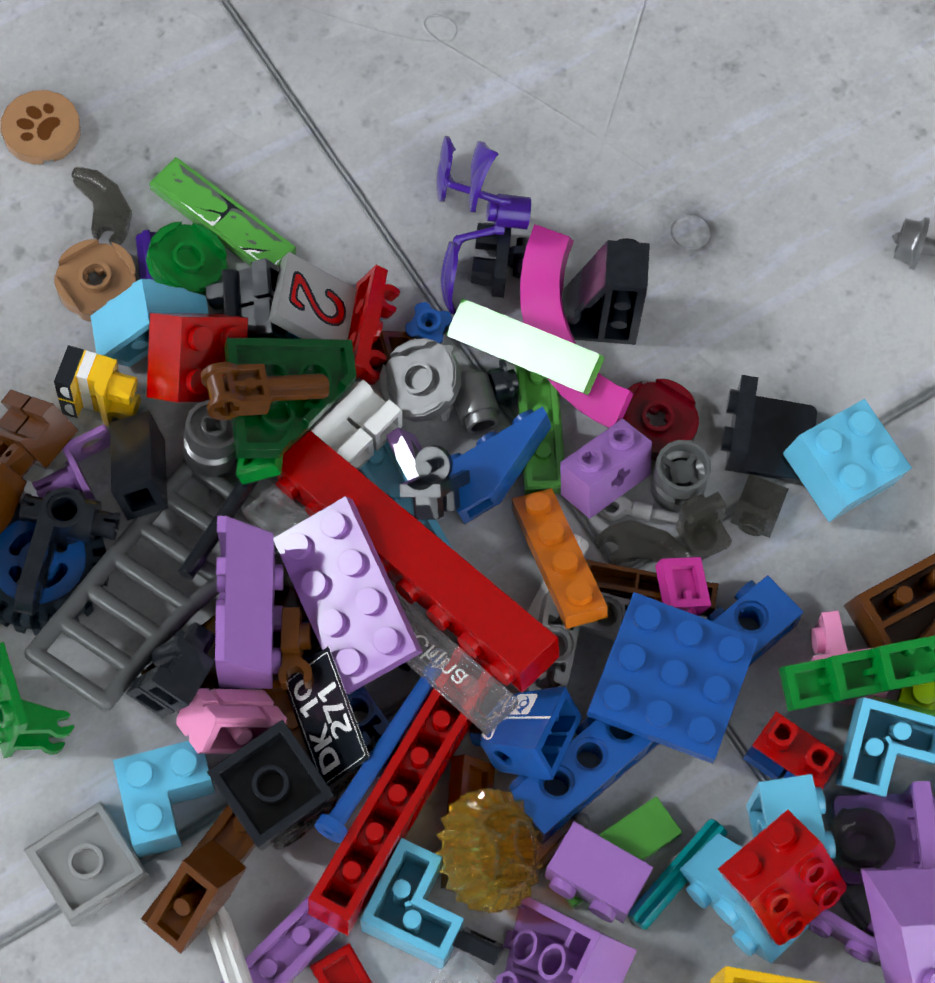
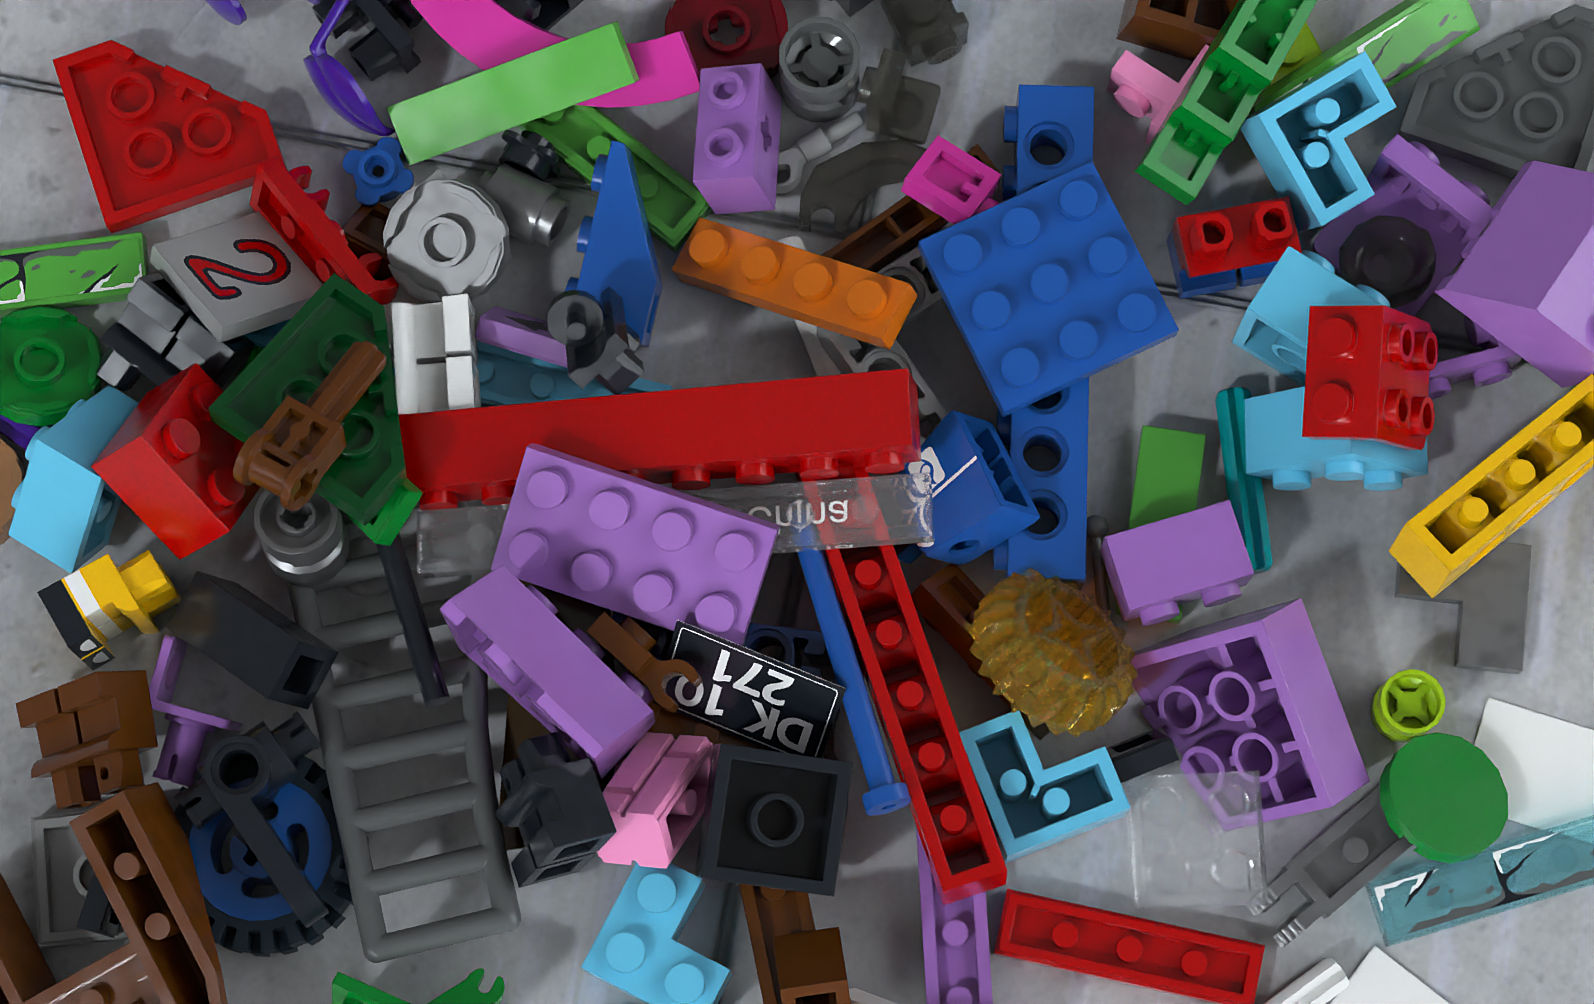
camera: 40 degrees left, 10 degrees up
(349, 213) = (158, 134): none -> red plate

